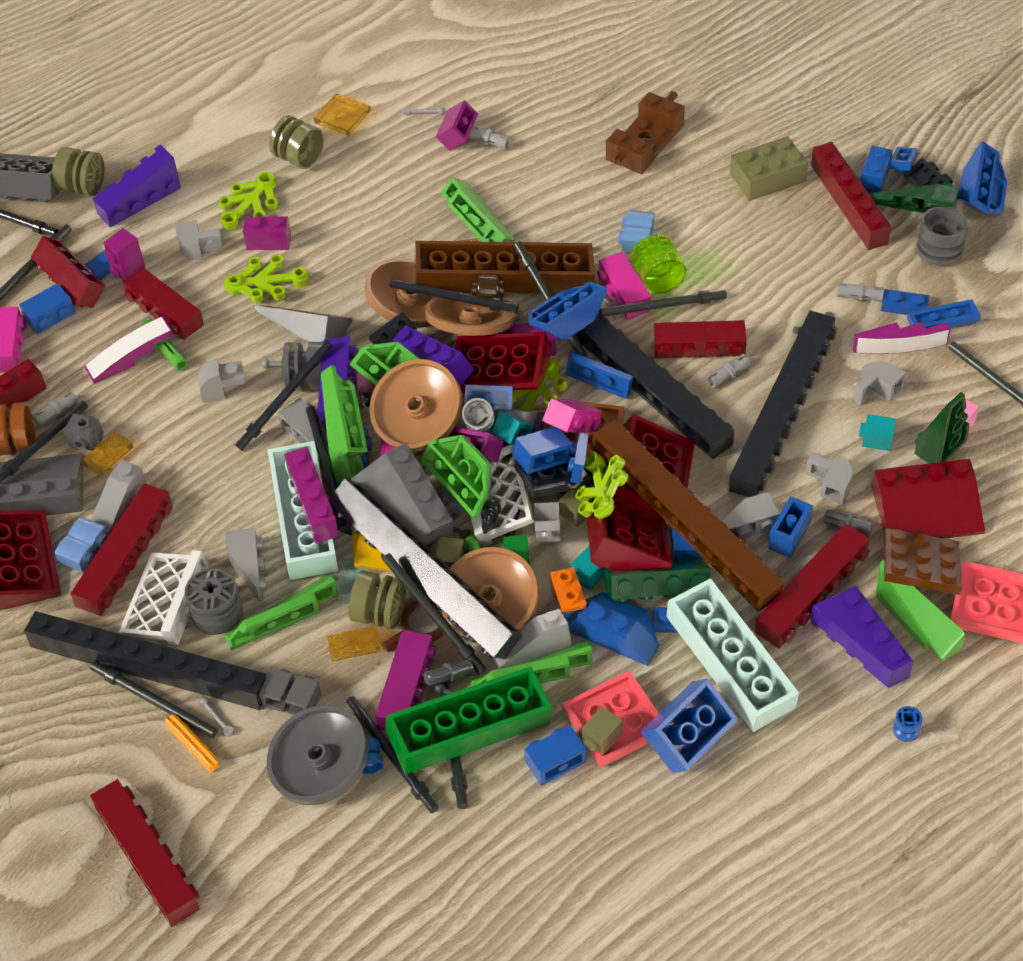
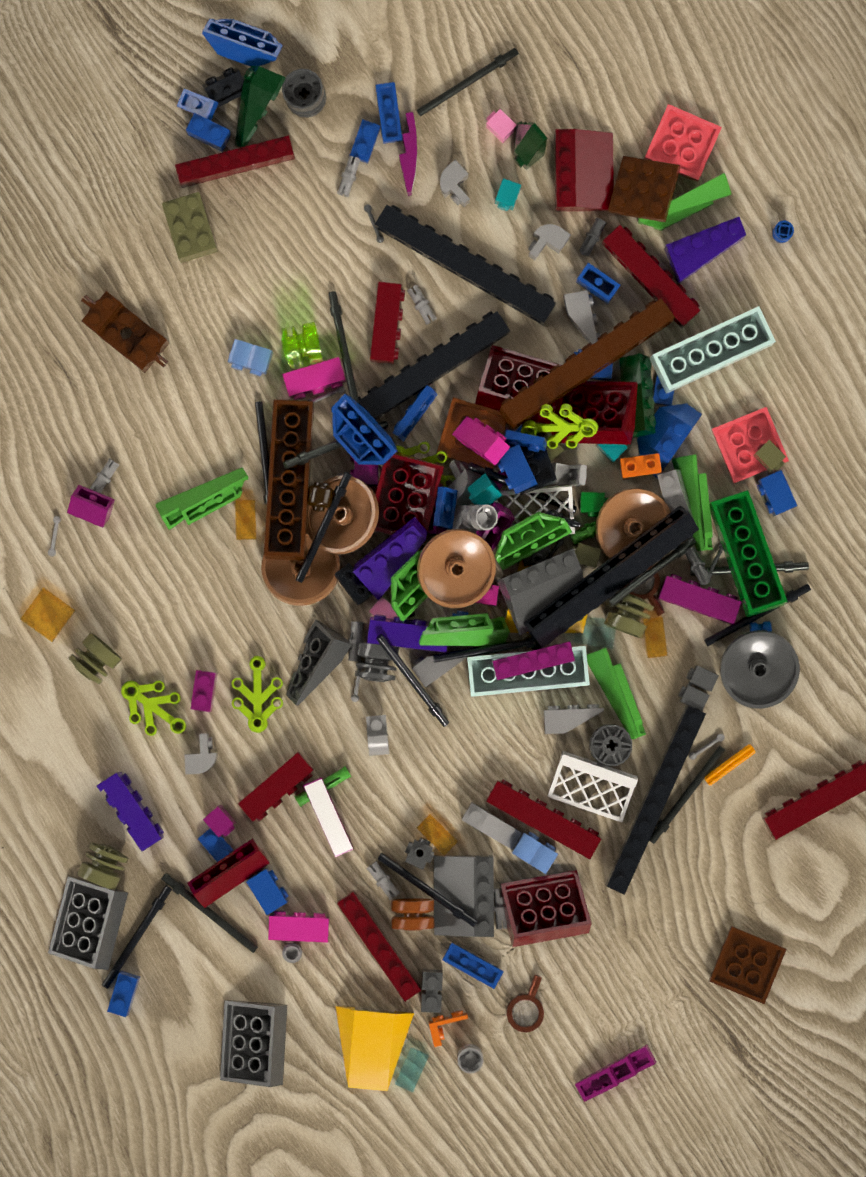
camera: 85 degrees left, 35 degrees up
(689, 725) = (772, 391): blue brick -> none

